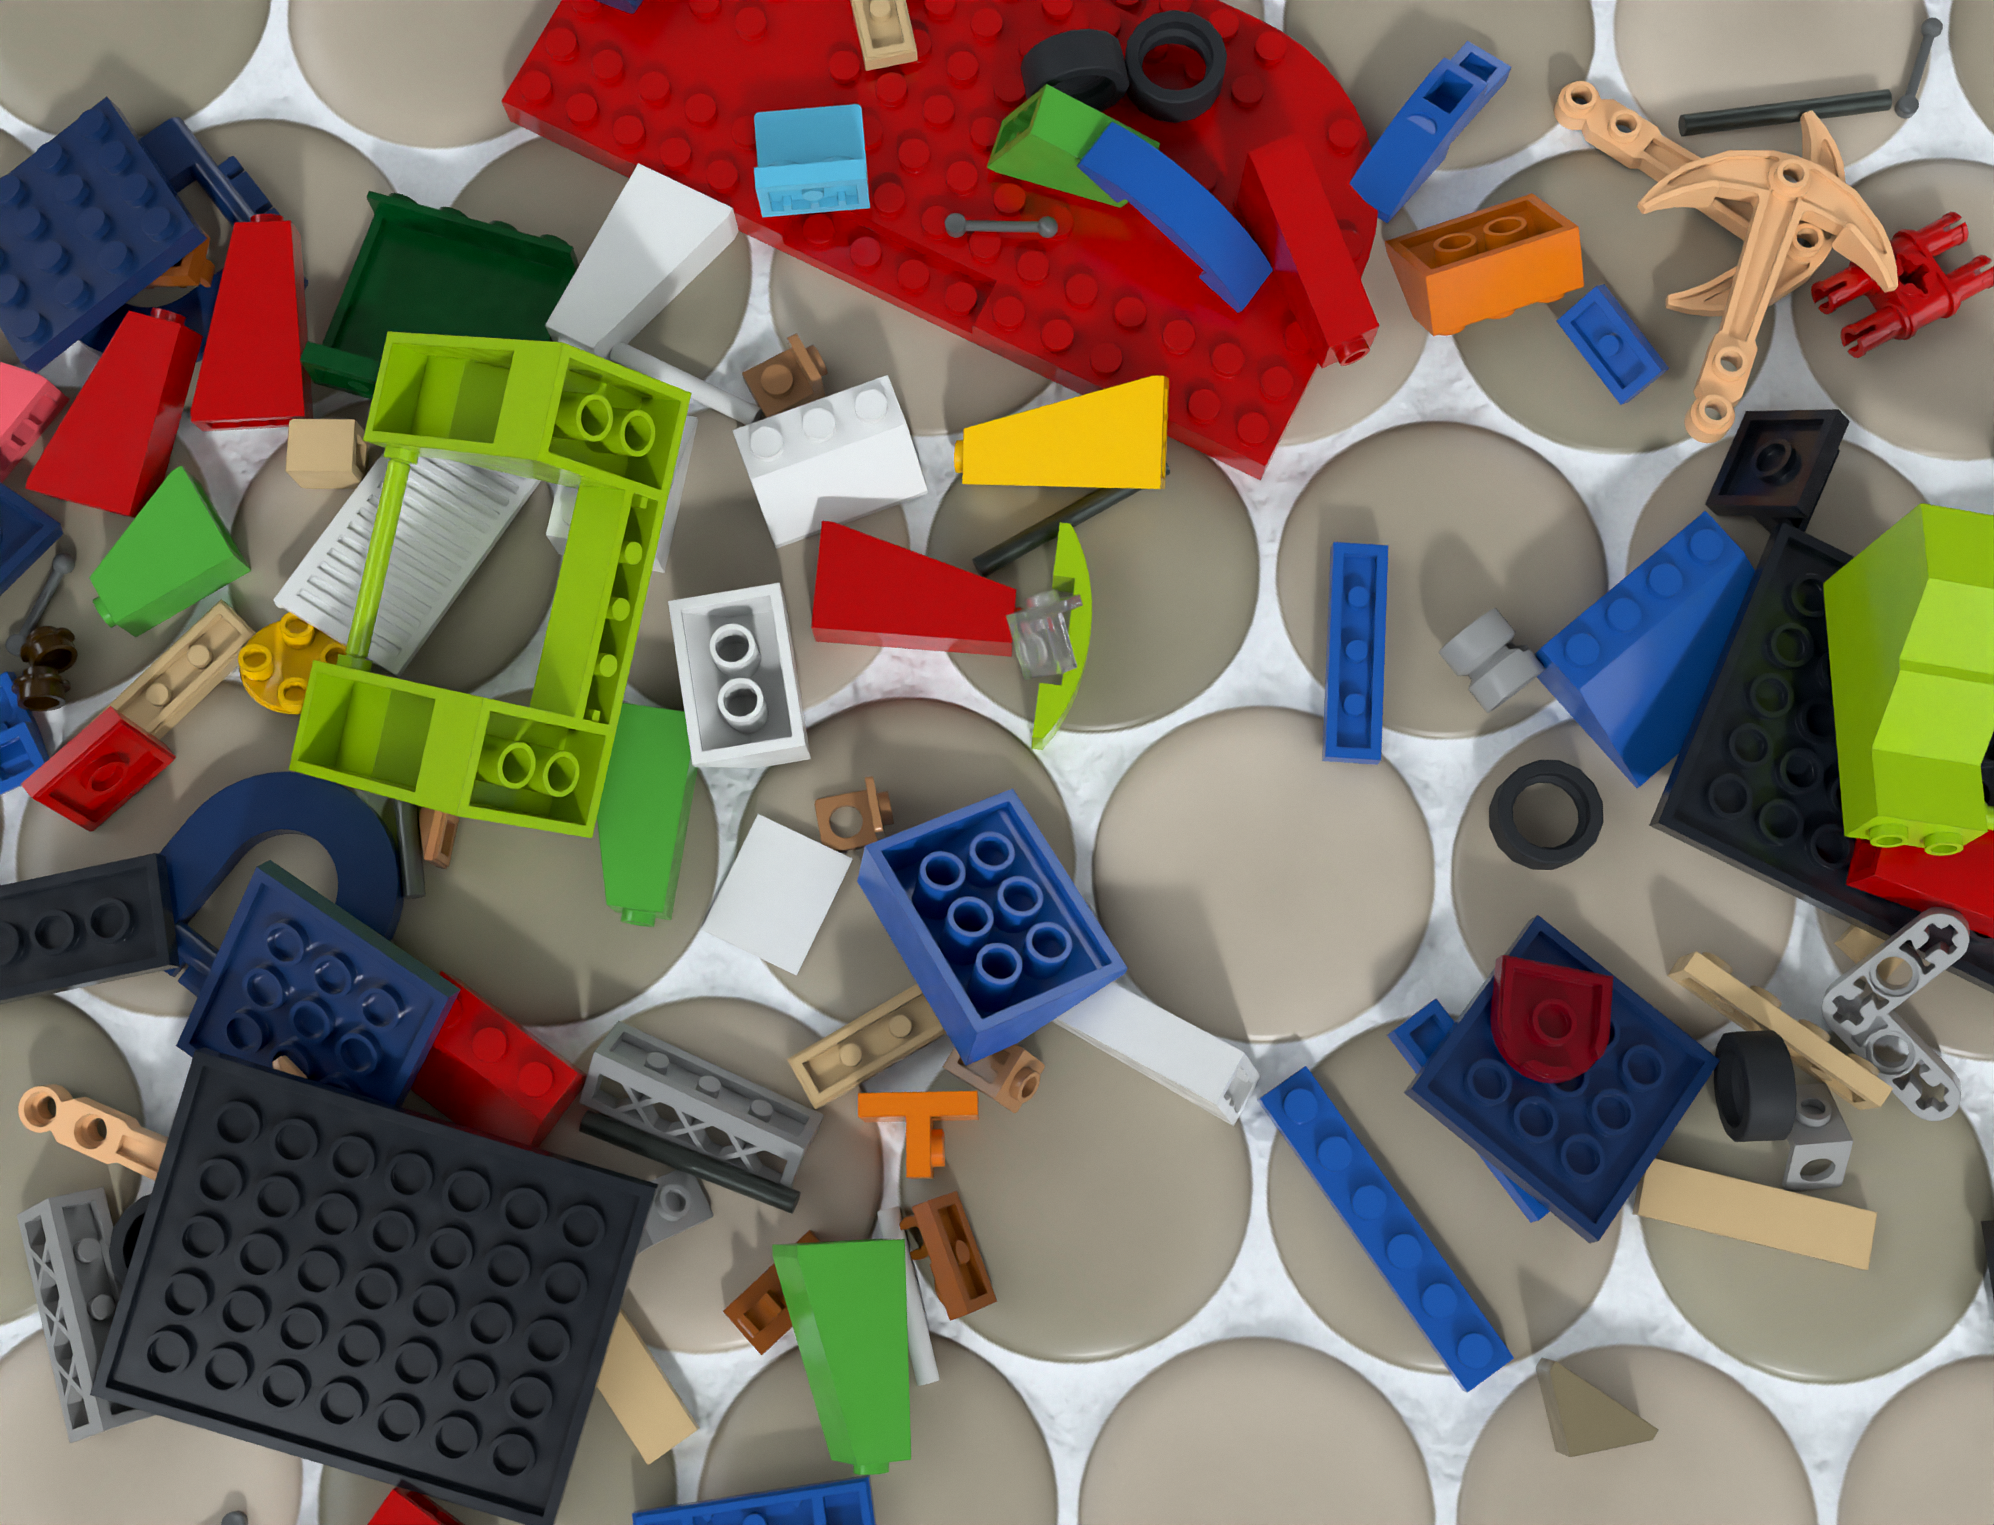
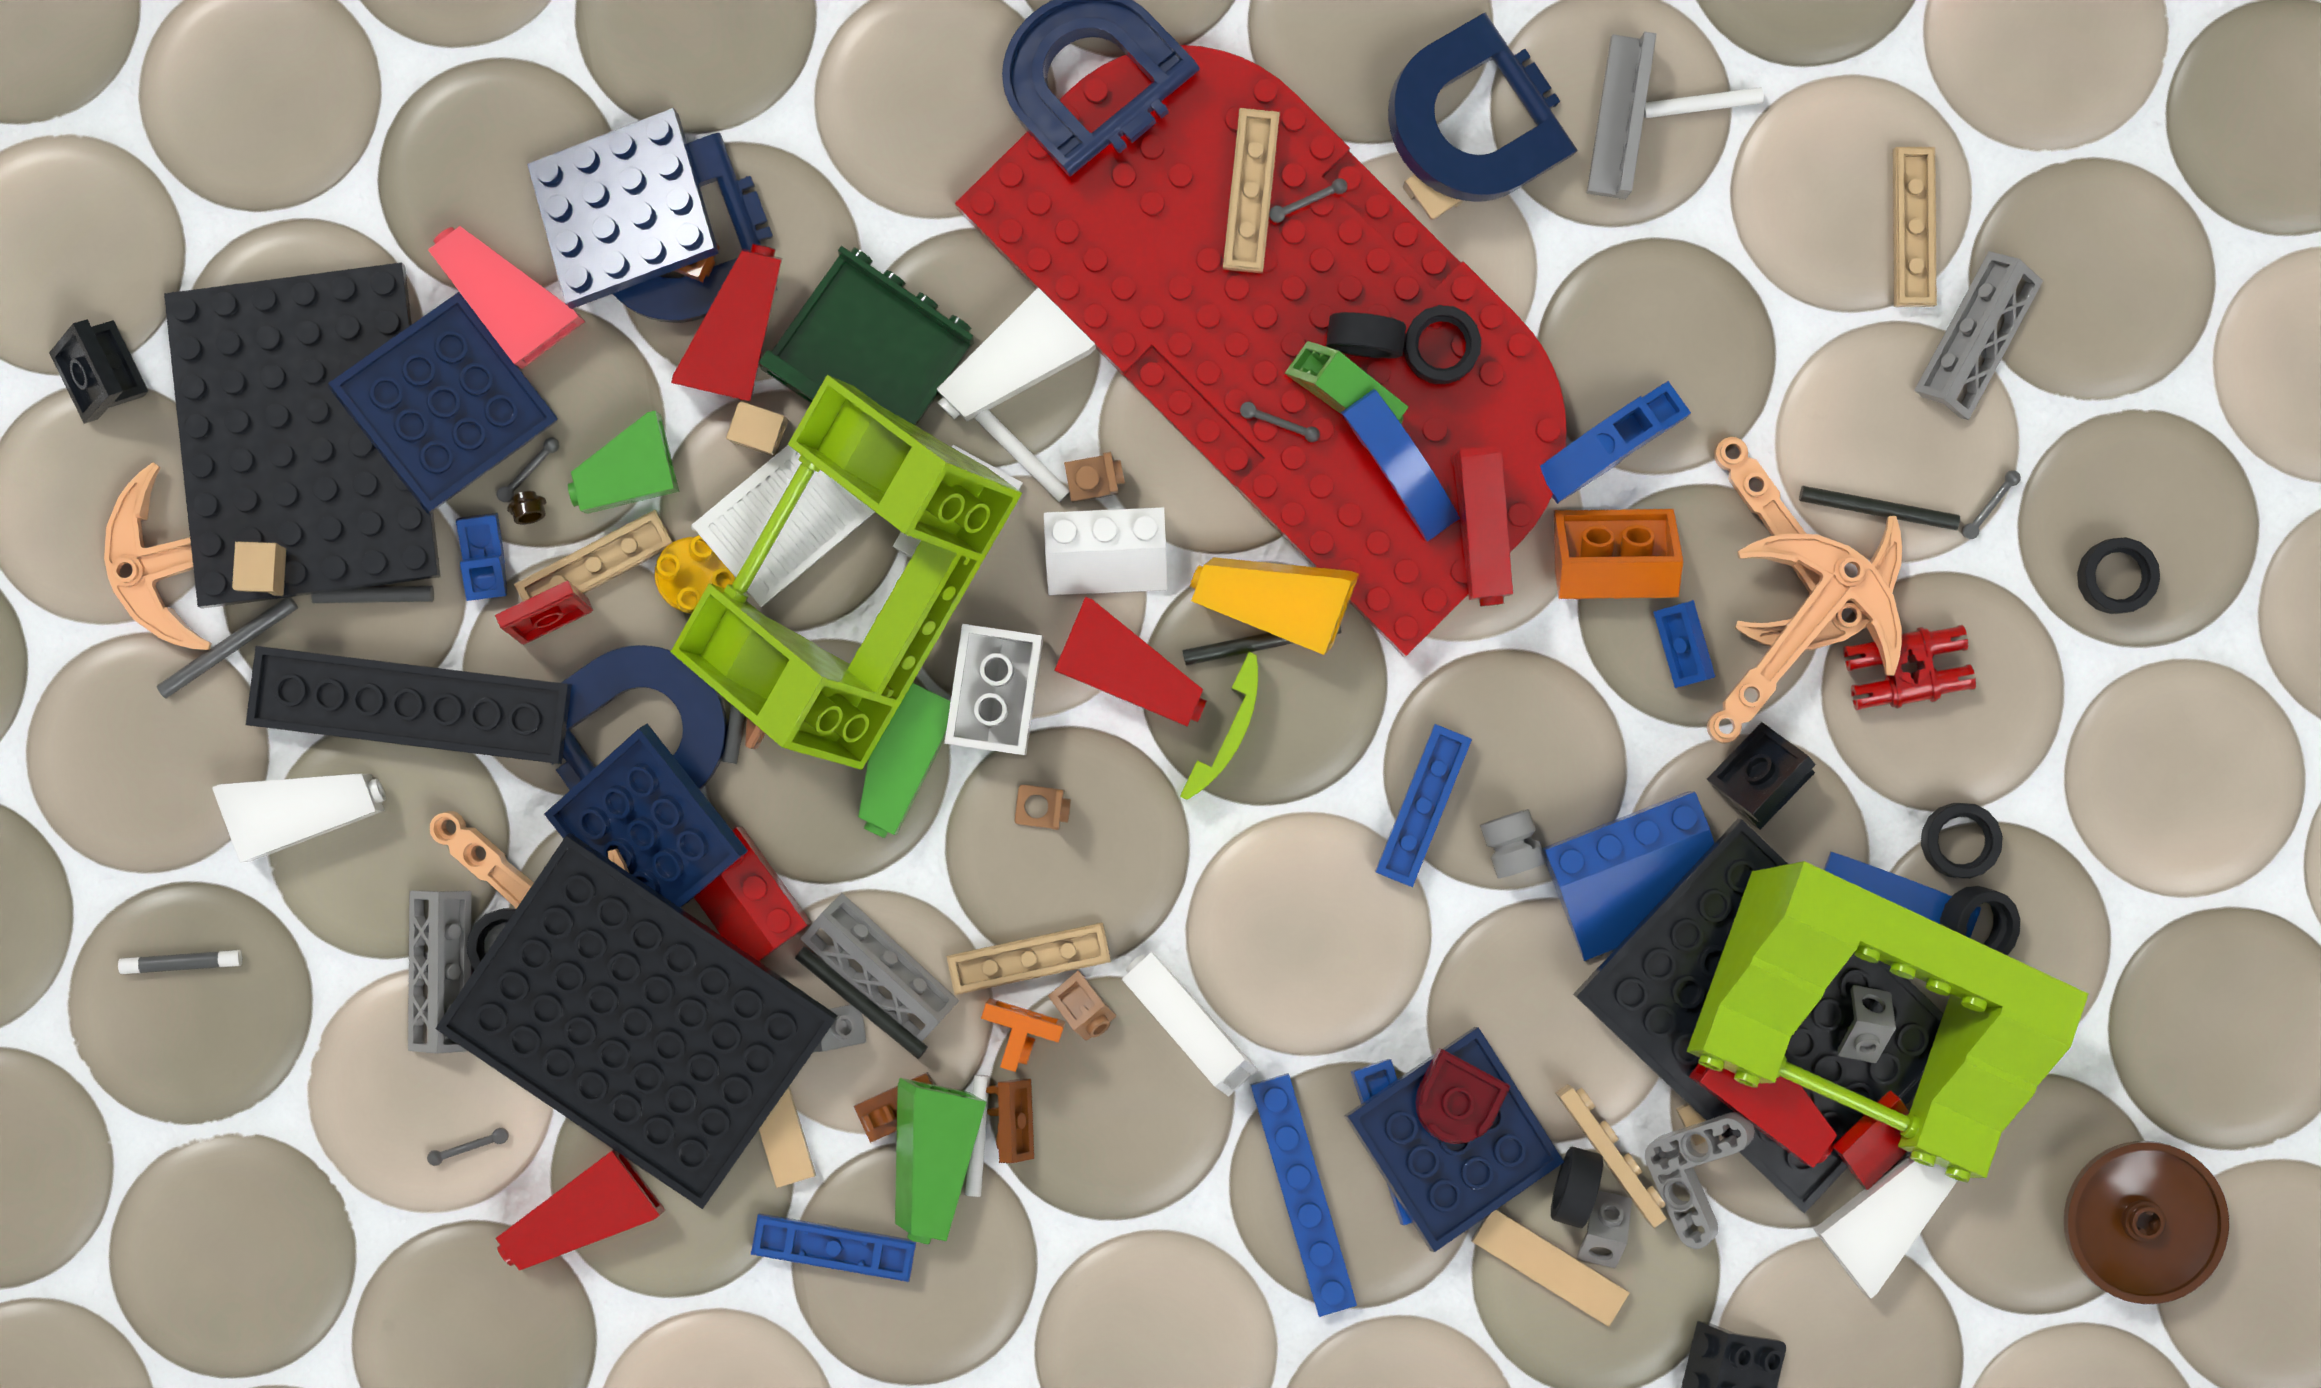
camera: 20 degrees right, 10 degrees up
(40, 689) = (515, 535): dark brown plate -> none
(124, 419) = (620, 365): red slope -> none
(777, 894) = (974, 841): white sticker -> none
(811, 160) = (1161, 330): medium azure bracket -> none
(987, 923) = (1108, 912): blue slope -> none
(1042, 636) = (1209, 728): clear bracket -> none
(1576, 785) = (1540, 969): black tyre -> none
(1583, 1416) = (1389, 1358): dark tan slope -> none

